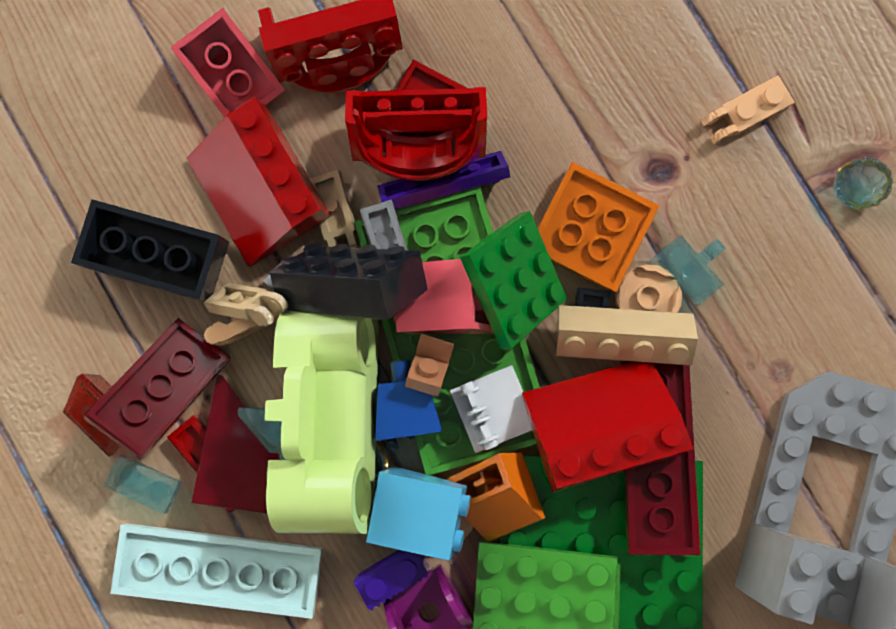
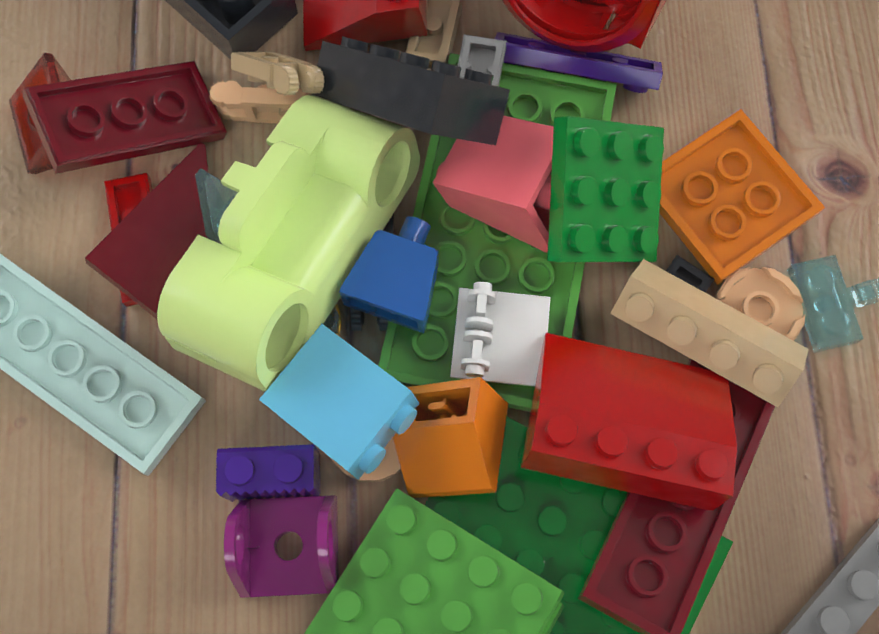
camera: 25 degrees right, 10 degrees down
(142, 484) = (45, 218): clear light blue plate -> none
(429, 365) = (455, 236): nougat slope -> none

